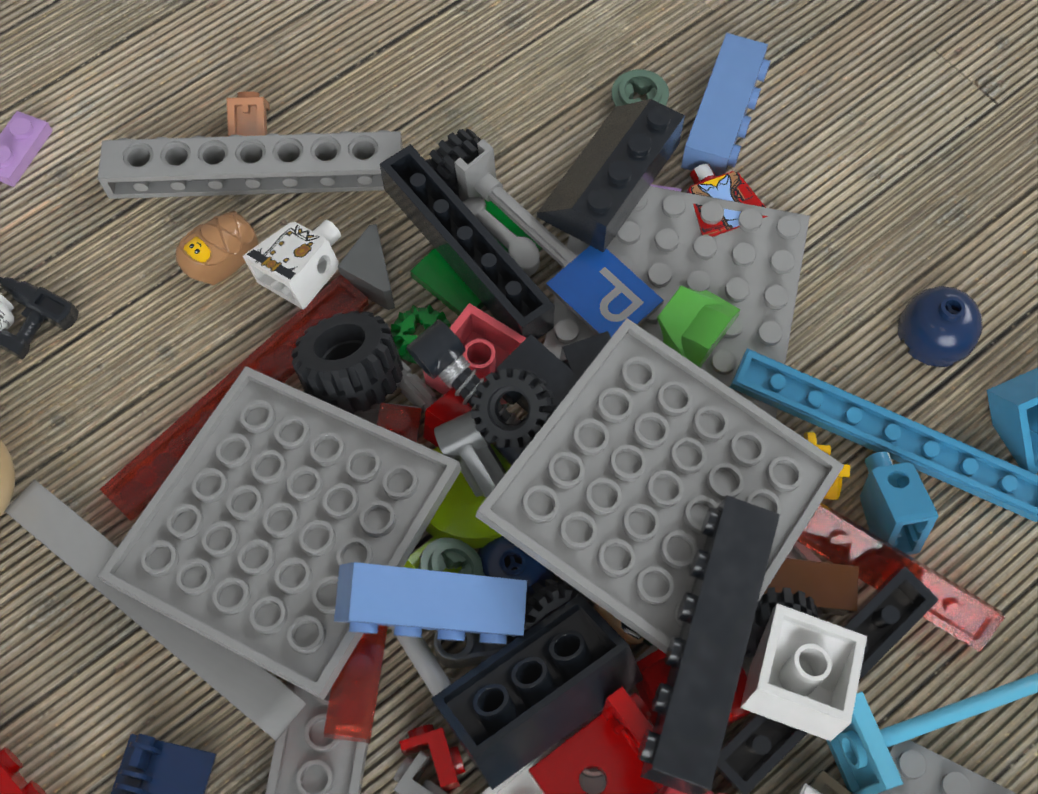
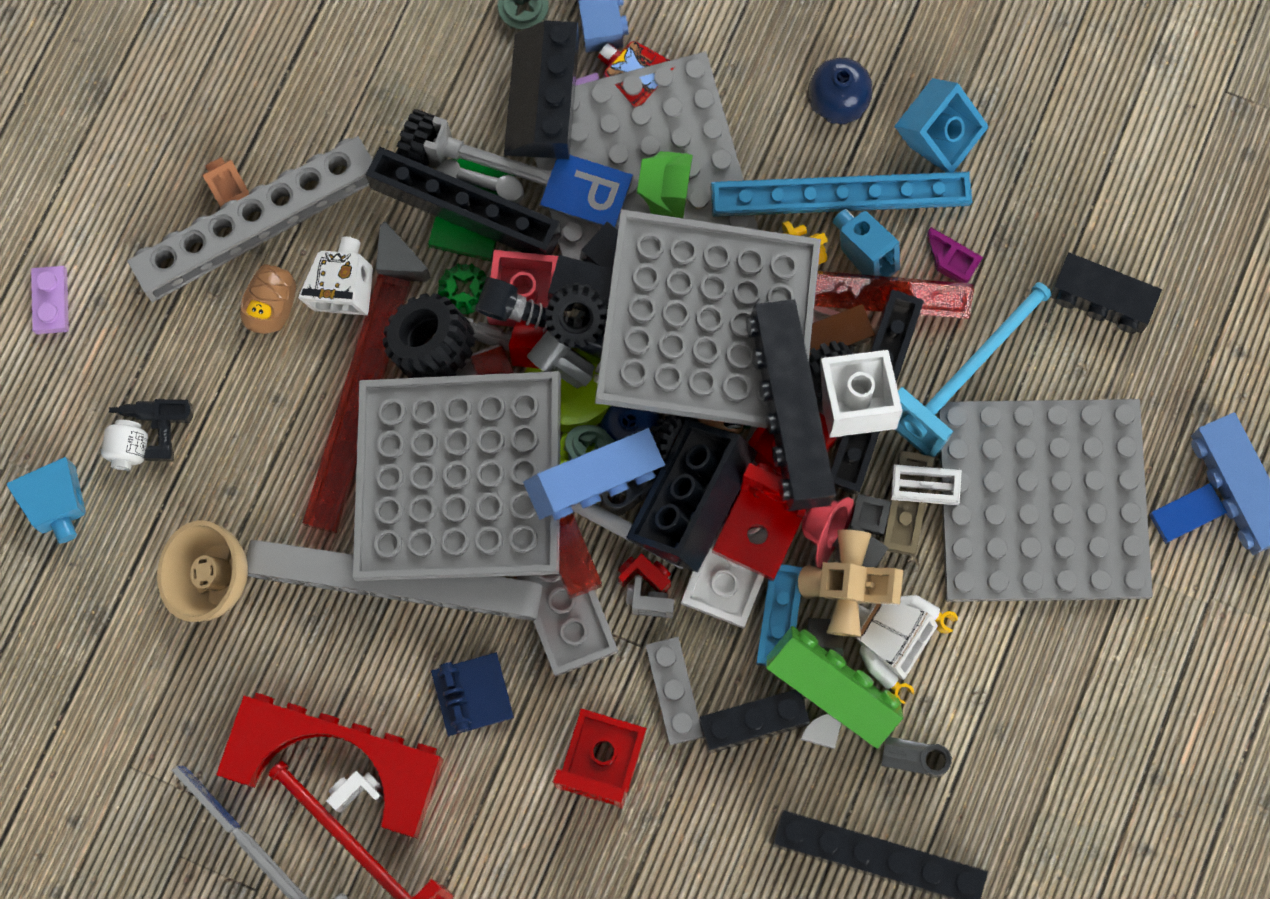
camera: 25 degrees left, 10 degrees up
(989, 570) = (952, 258): none -> magenta tile

